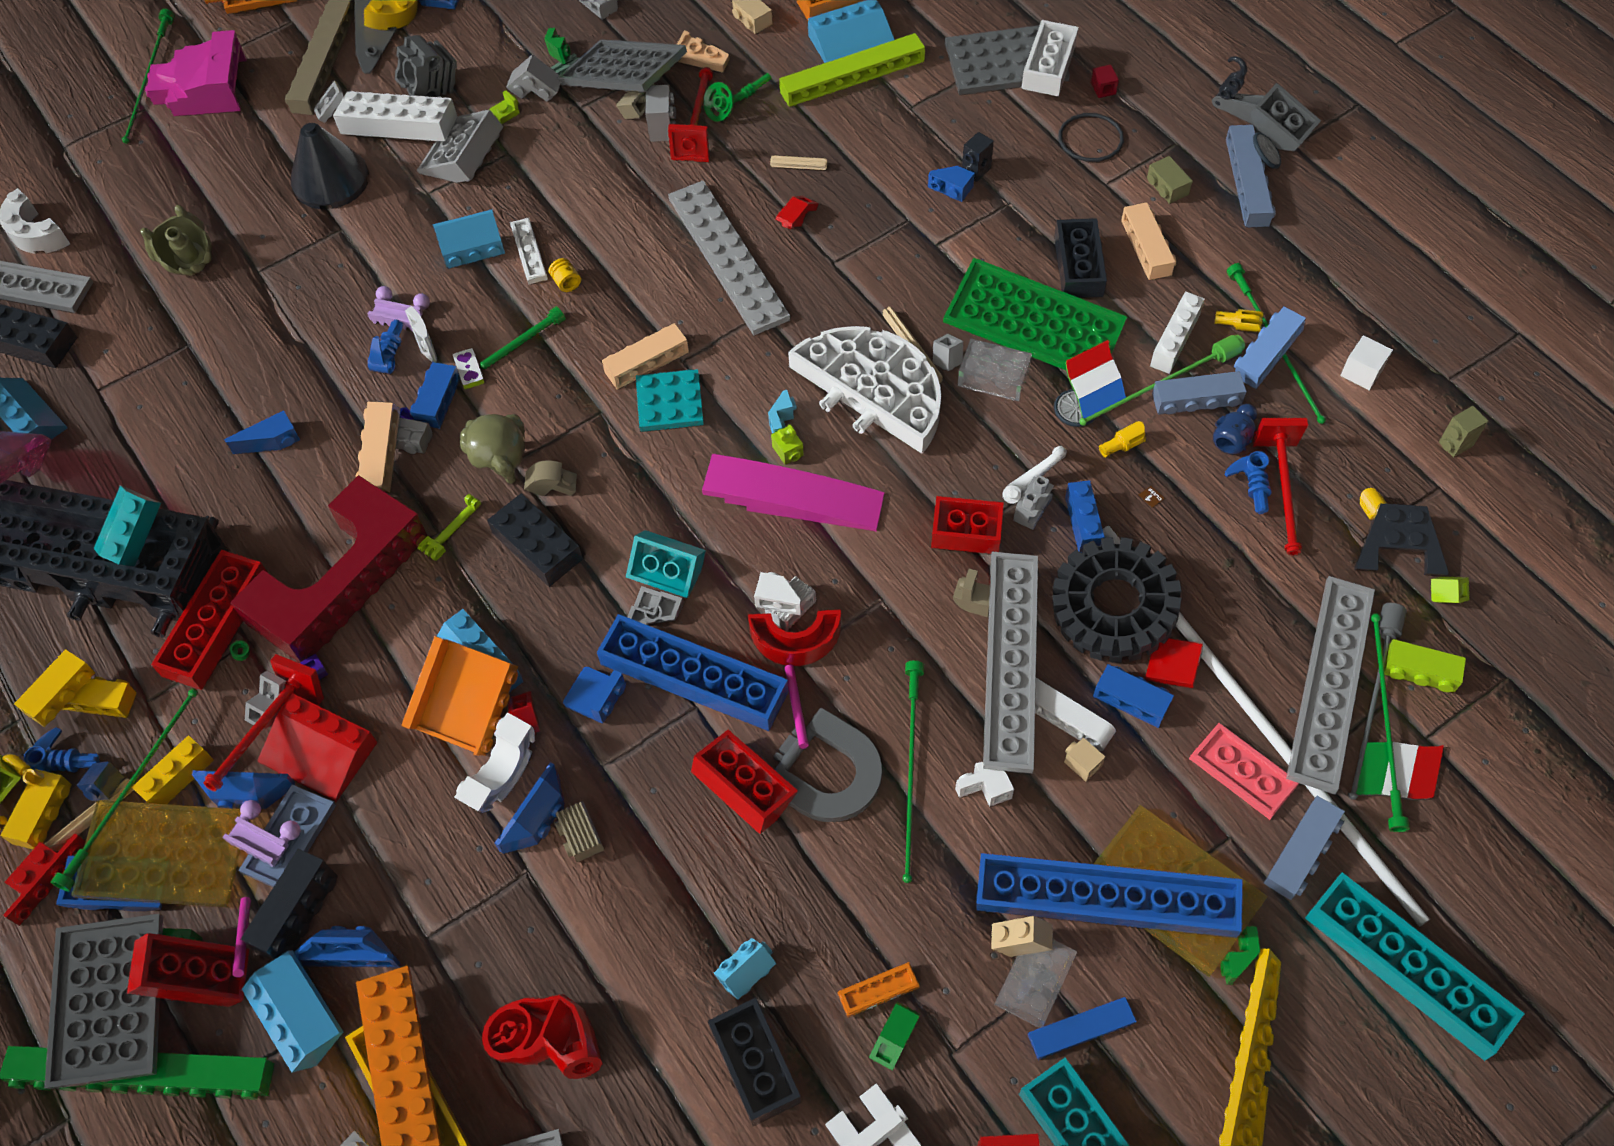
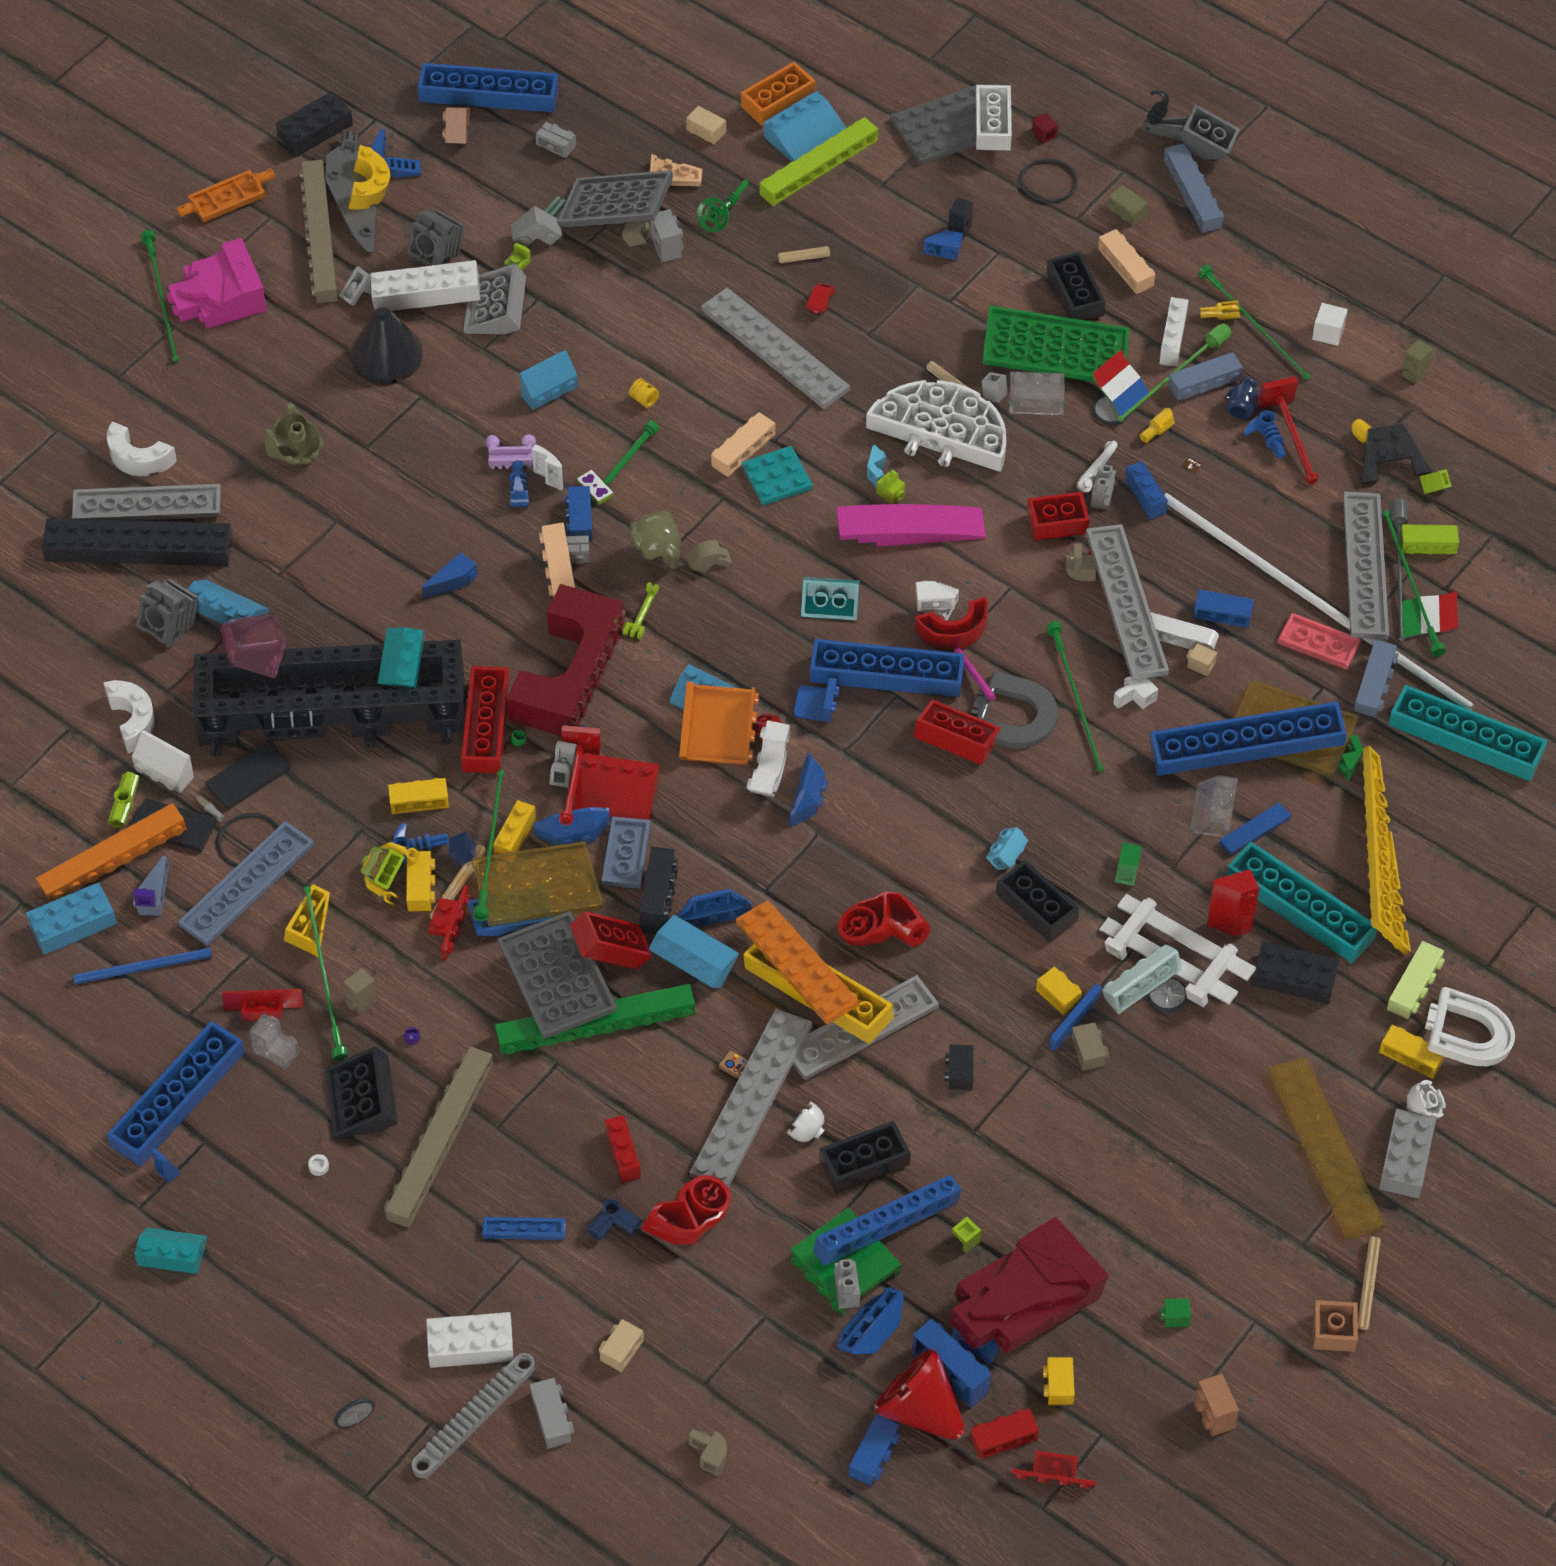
camera: 20 degrees left, 5 degrees down
(55, 688) = (395, 792): yellow brick -> none
(240, 949) = (631, 916): dark pink bar -> none
(258, 841) = (609, 855): lavender gear -> none
(528, 251) = (599, 379): white tile -> none
(535, 539) = (718, 604): black brick -> none
(557, 46) = (542, 193): green slope -> none
(579, 832) = (847, 795): dark tan brick -> none
(655, 607) = (836, 630): light grey slope -> none
(691, 141) = (702, 255): red tile -> none
(878, 989) = (1106, 840): orange plate -> none
(1022, 936) = (1196, 779): tan brick -> none
(1116, 634) = (1196, 568): black tyre -> none
(1175, 663) = (1247, 578): red tile -> none
(1267, 150) = (1202, 163): wheel -> none
(1270, 346) = (1251, 327): medium blue brick -> none

